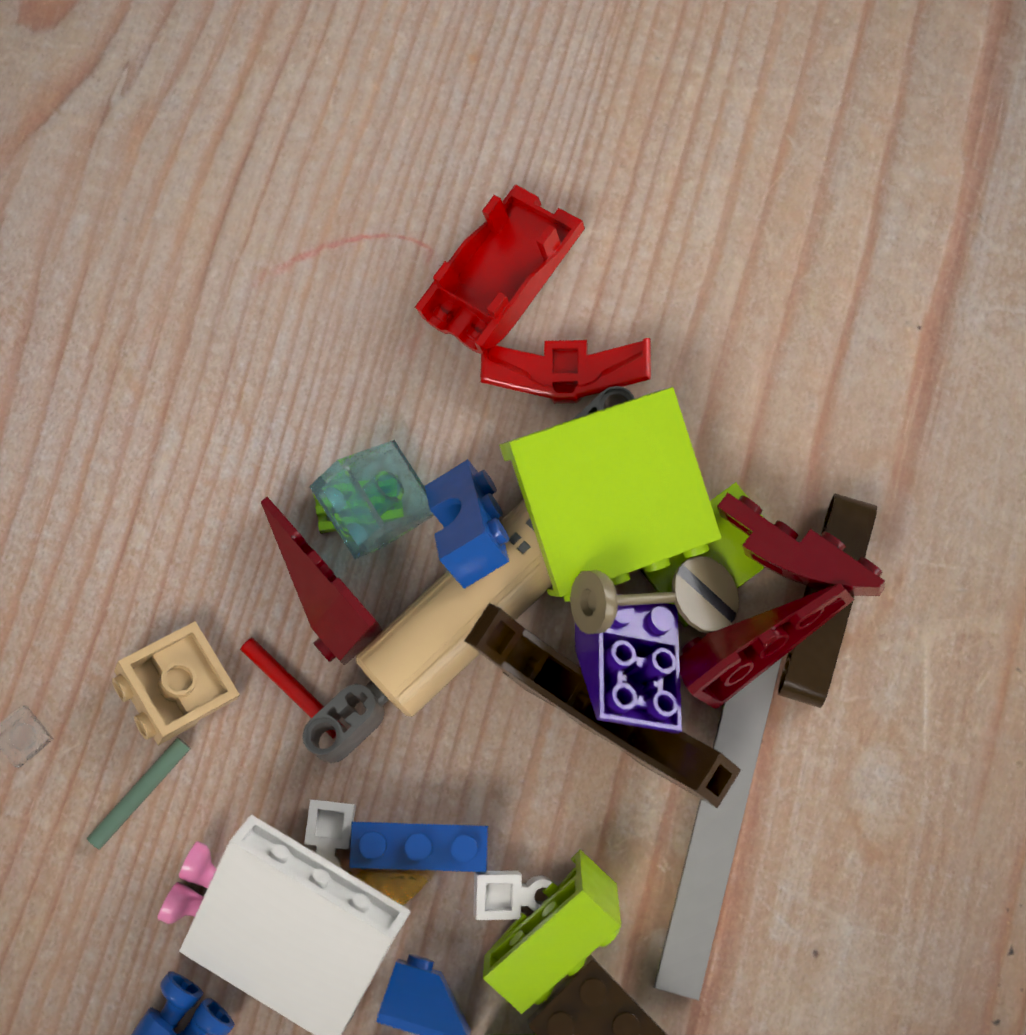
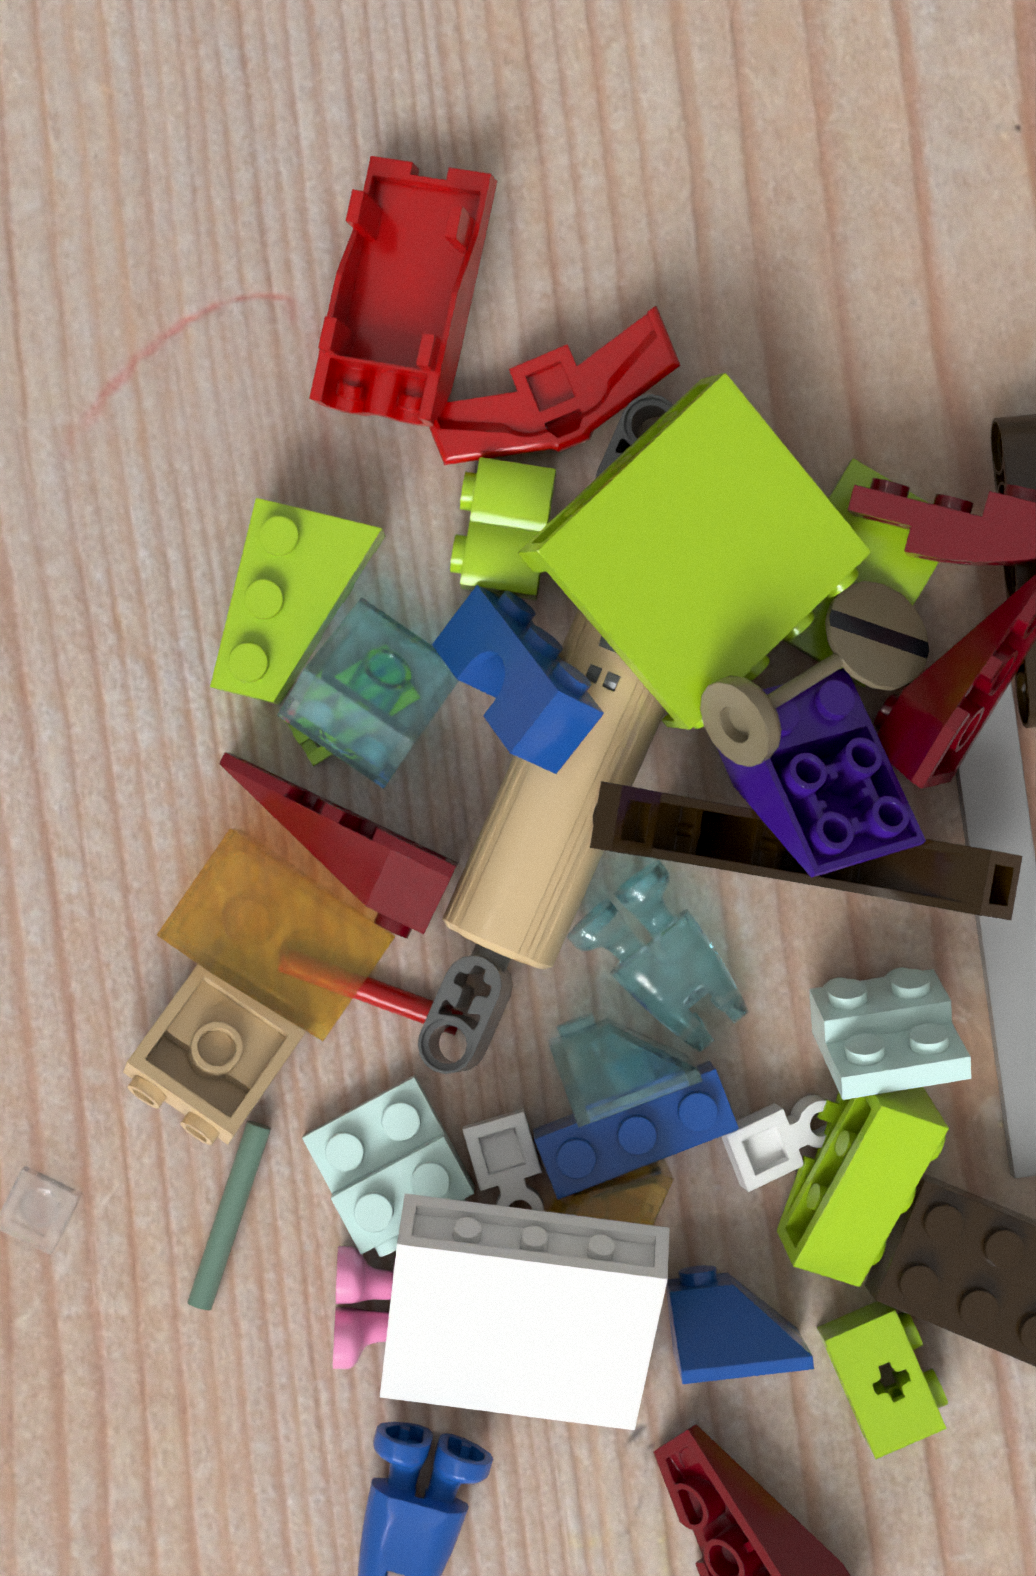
camera: 30 degrees left, 10 degrees up
(248, 624) = (276, 934): none -> clear yellow slope
(254, 787) = (381, 1154): none -> light aqua plate
(349, 417) = (285, 595): none -> lime wedge
(422, 796) = (615, 1067): none -> clear light blue slope
(486, 751) = (671, 968): none -> clear light blue piece
(504, 418) = (507, 510): none -> lime brick
(609, 851) = (888, 1033): none -> light aqua plate

